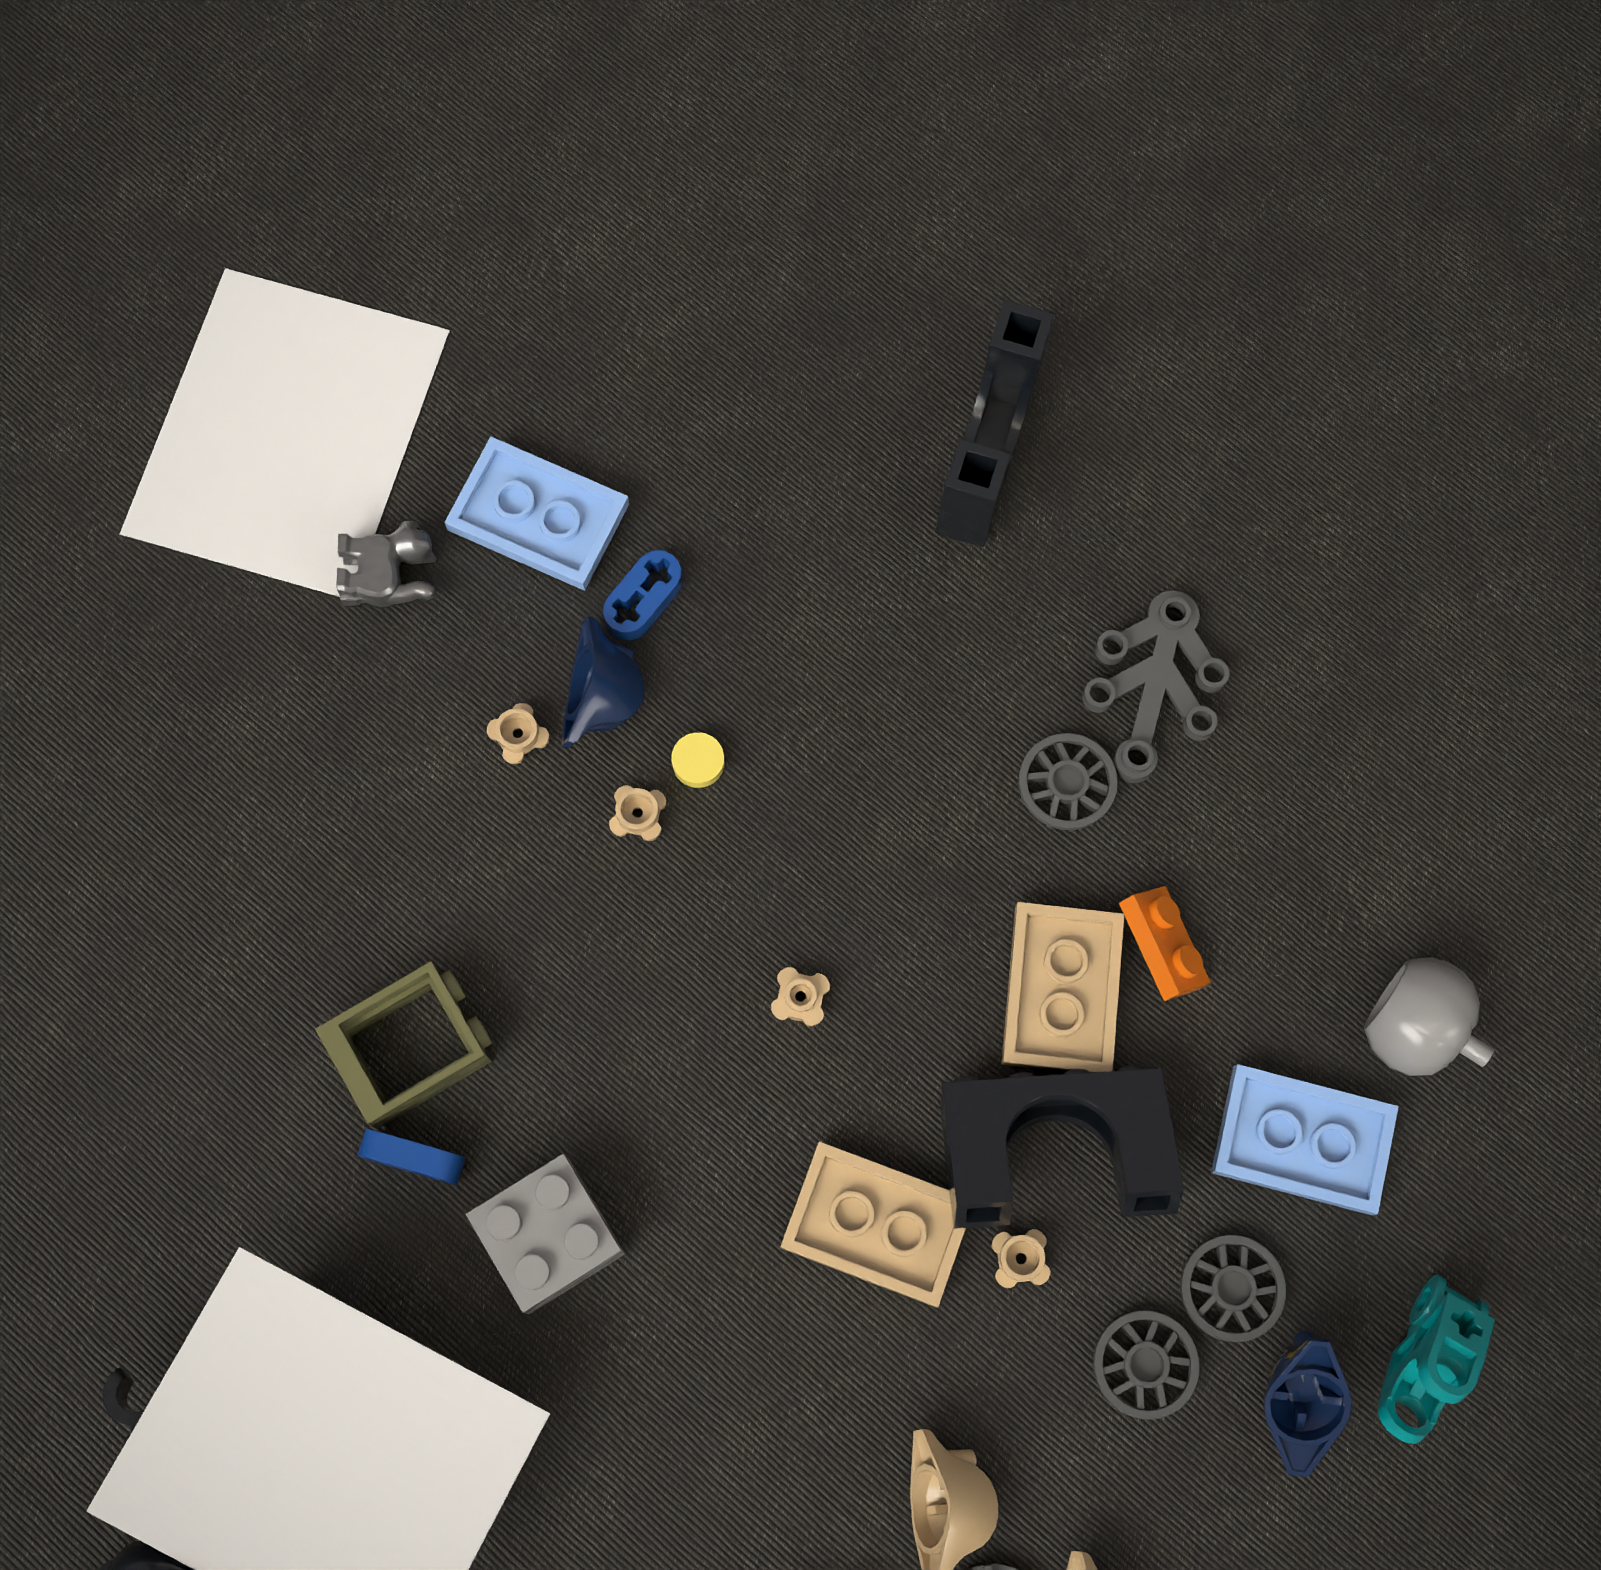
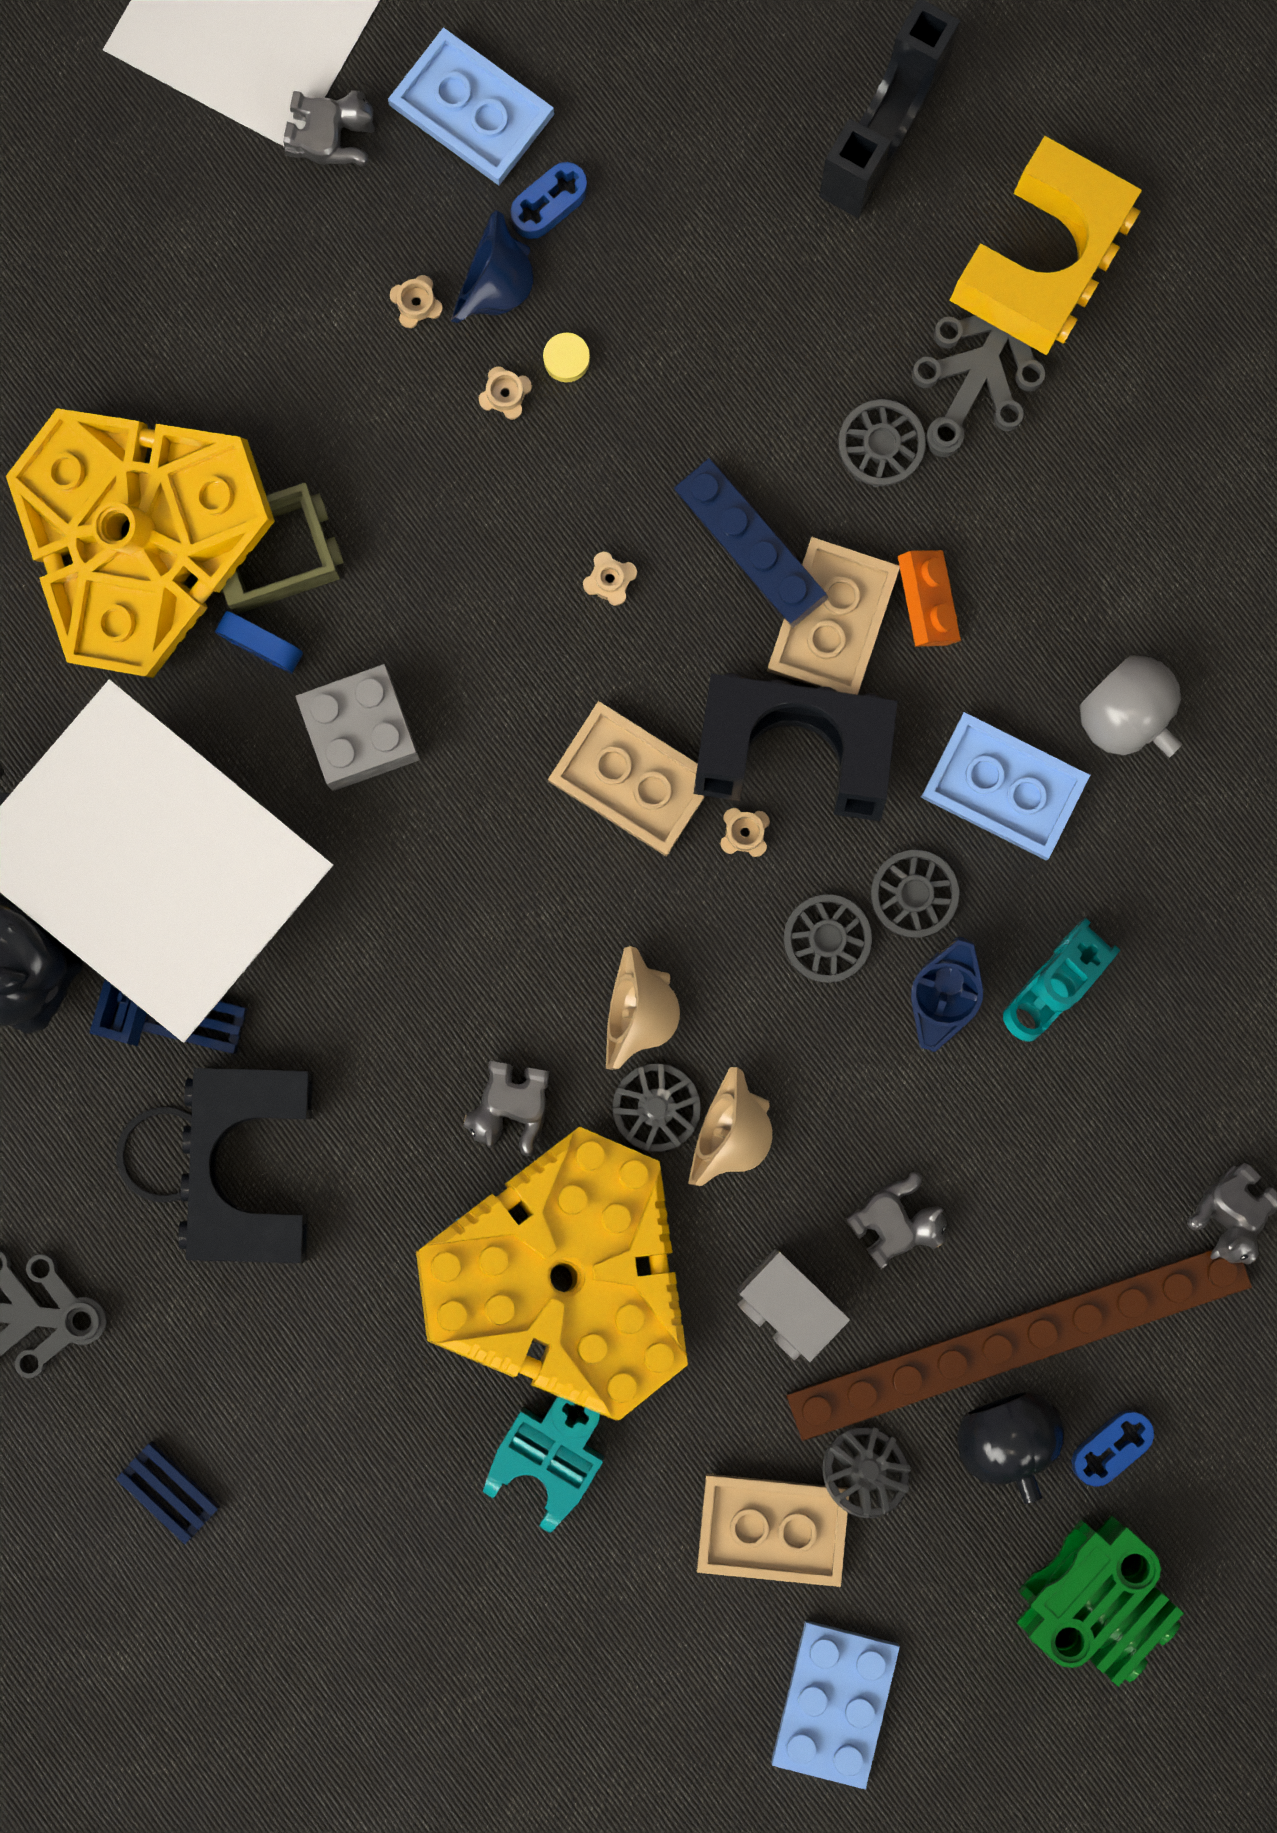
camera: 15 degrees right, 10 degrees up
(298, 1028) = (187, 513): none -> yellow plate
(952, 923) = (751, 543): none -> dark blue plate
(1205, 597) = (1039, 304): none -> yellow arch

